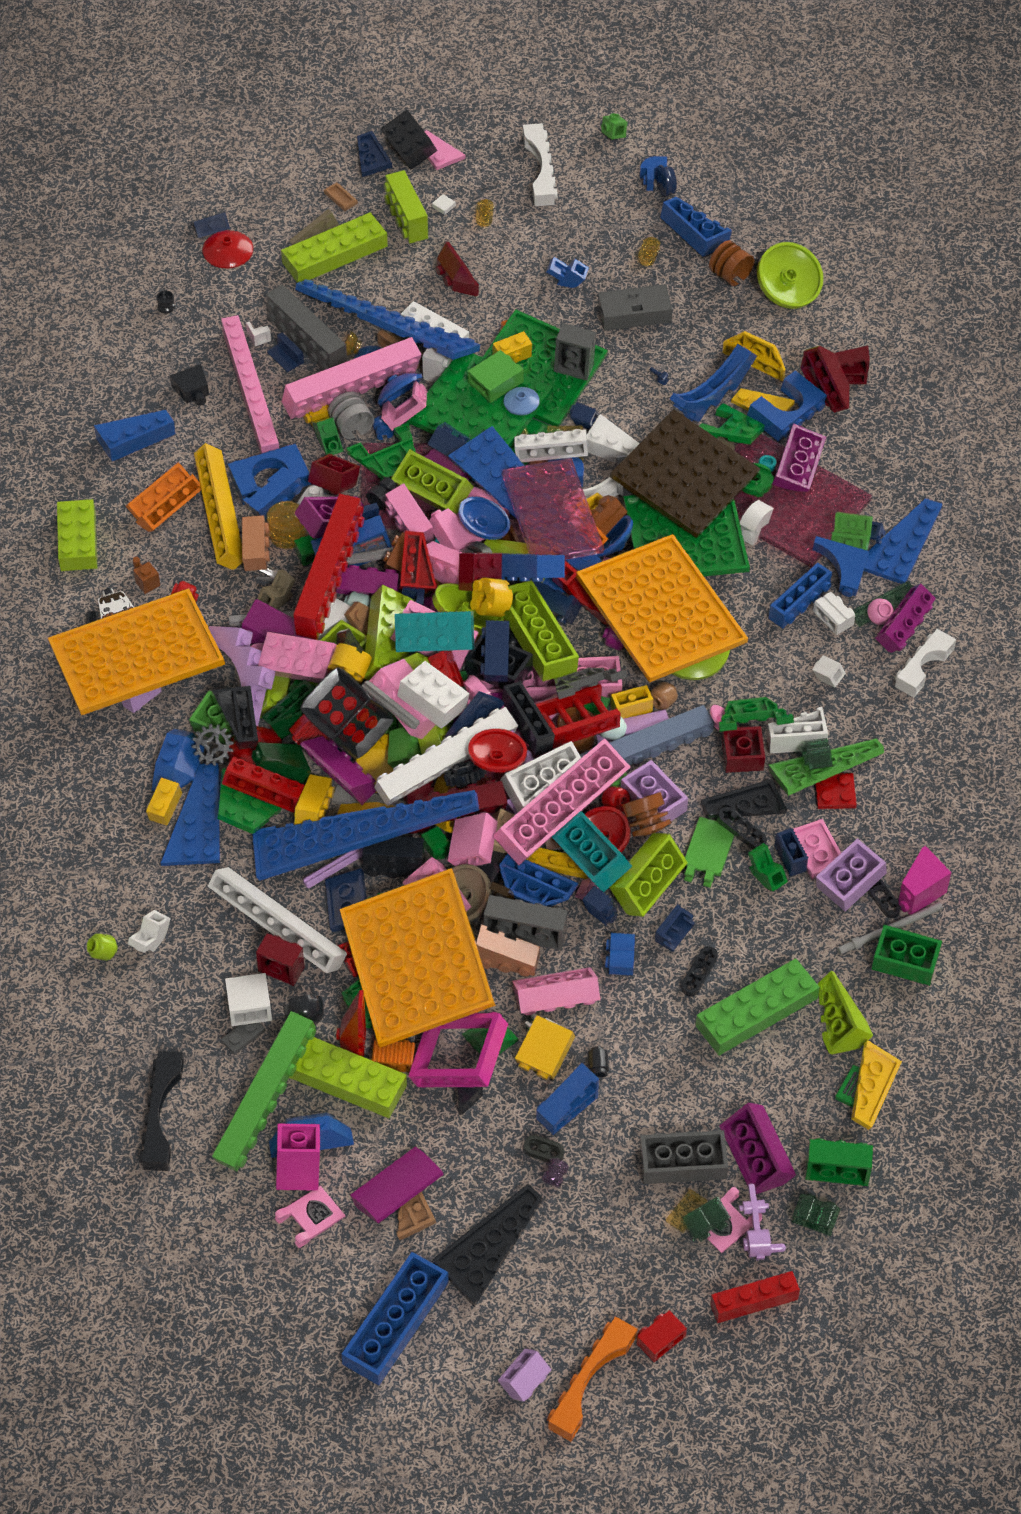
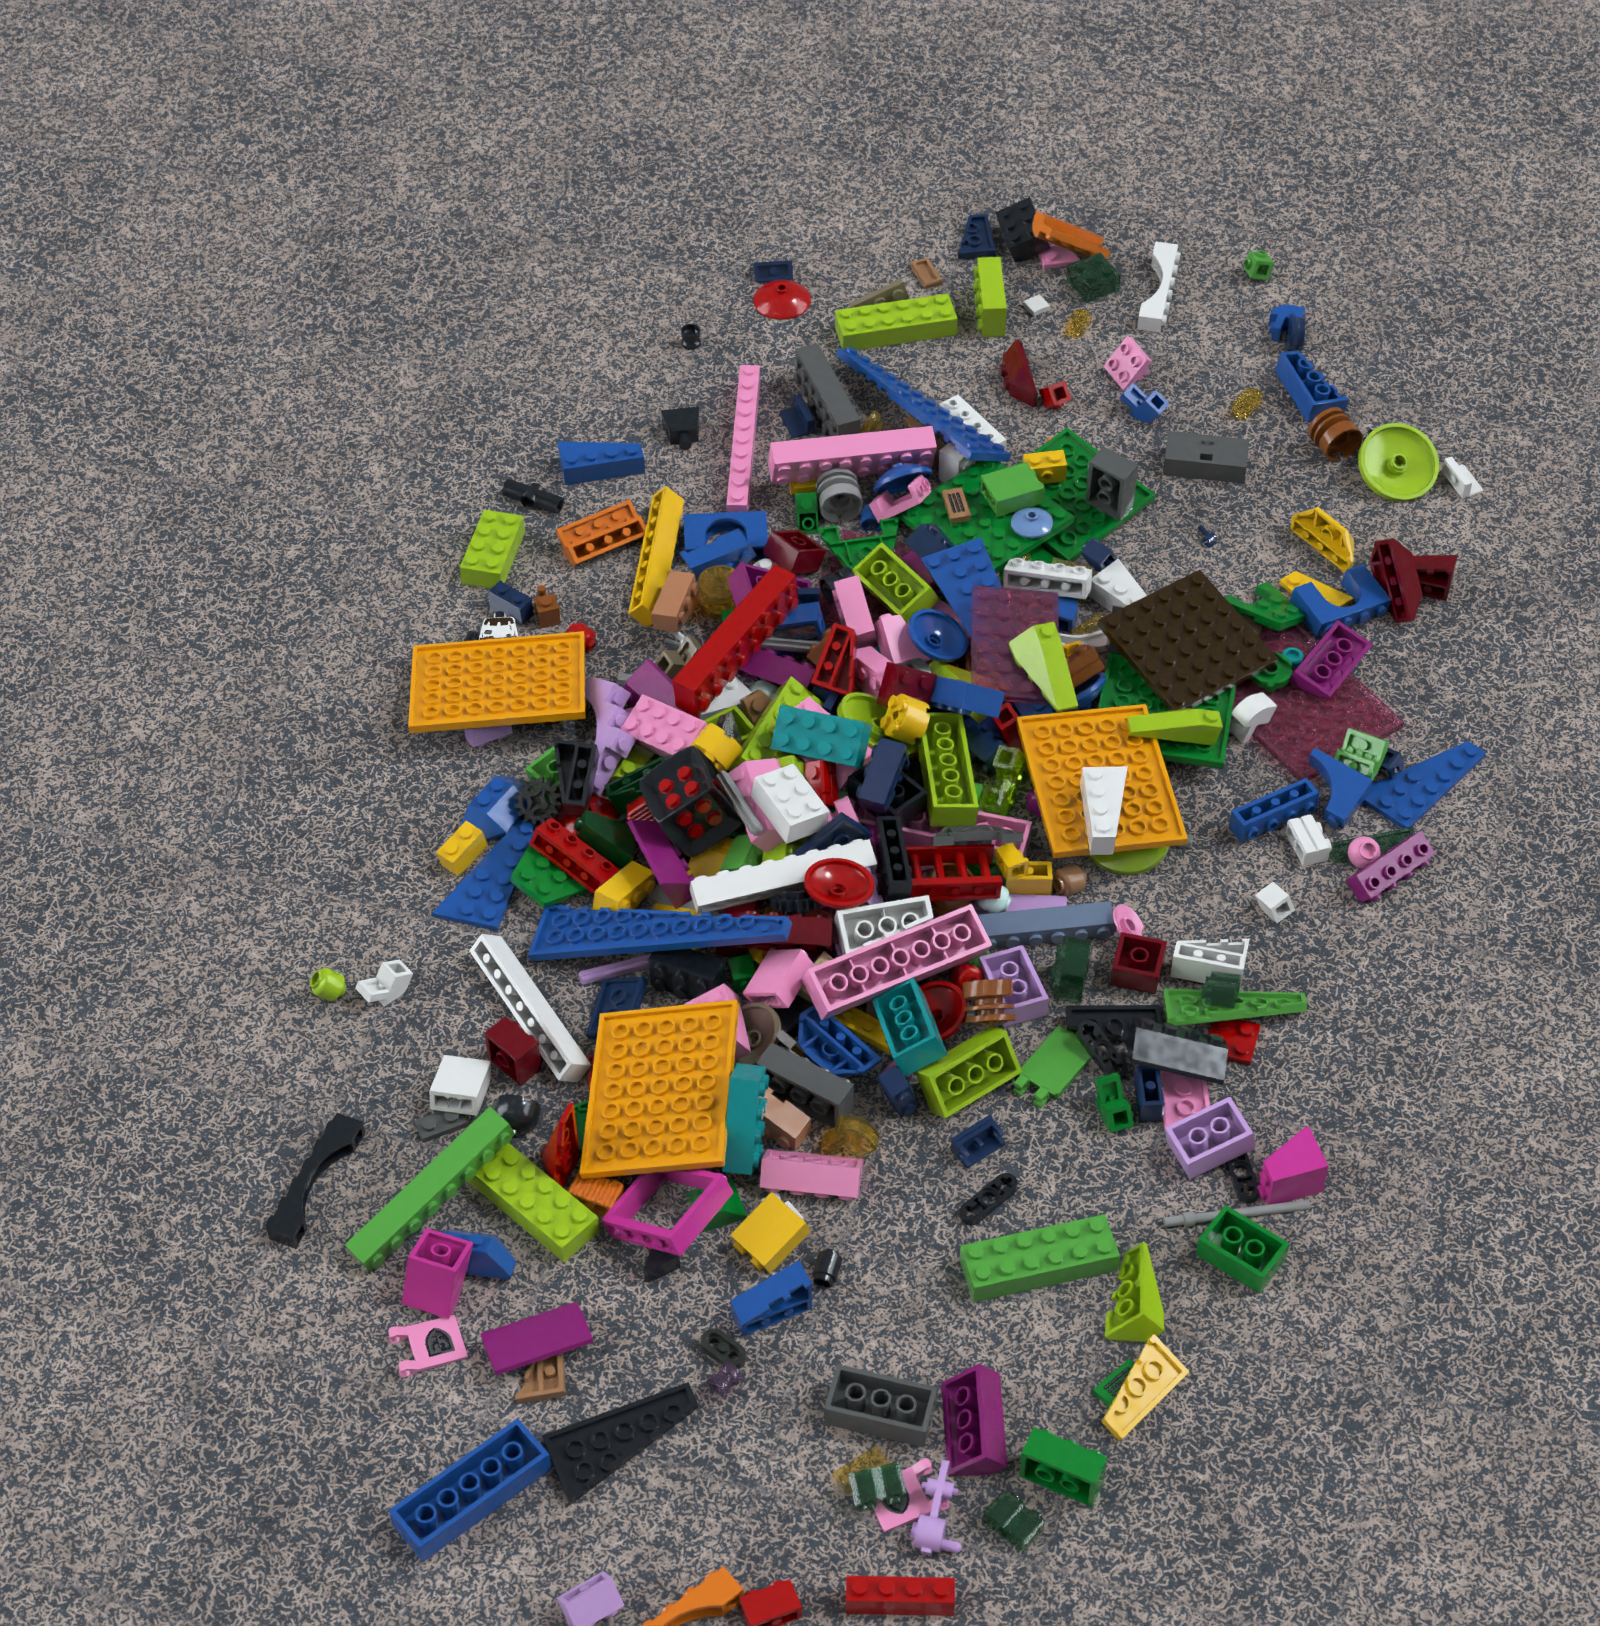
camera: 20 degrees right, 5 degrees down
(90, 478) = (533, 496): none -> black piece
(112, 577) = (511, 601): none -> dark blue brick
(258, 335) = (777, 393): white panel -> none
(452, 137) = (1068, 235): none -> orange brick
(454, 401) = (956, 505): none -> medium nougat tile
(483, 169) = (1093, 277): none -> clear green brick
(492, 282) = (1055, 395): none -> red brick
(495, 957) = (745, 1118): none -> teal brick
(541, 240) = (1128, 363): none -> bright pink plate
(576, 949) = (853, 1133): none -> clear yellow brick
(583, 518) = (1043, 658): none -> lime wedge
(584, 619) = (1009, 770): none -> clear neon green arch
(595, 476) = (1088, 625): none -> clear yellow axle
(617, 694) = (1011, 862): none -> yellow brick
(621, 954) = (903, 1154): blue brick -> none
(674, 627) = (1102, 800): none -> white wedge
(694, 769) = (1070, 969): none -> clear green brick
(706, 545) = (1179, 725): none -> lime wedge
(728, 376) = (1259, 565): blue arch -> none
(752, 709) = (1163, 920): green wing -> none
(802, 812) = (1177, 1050): none -> slope
(841, 276) = (1460, 478): none -> white panel
(936, 647) = (1416, 909): white arch -> none

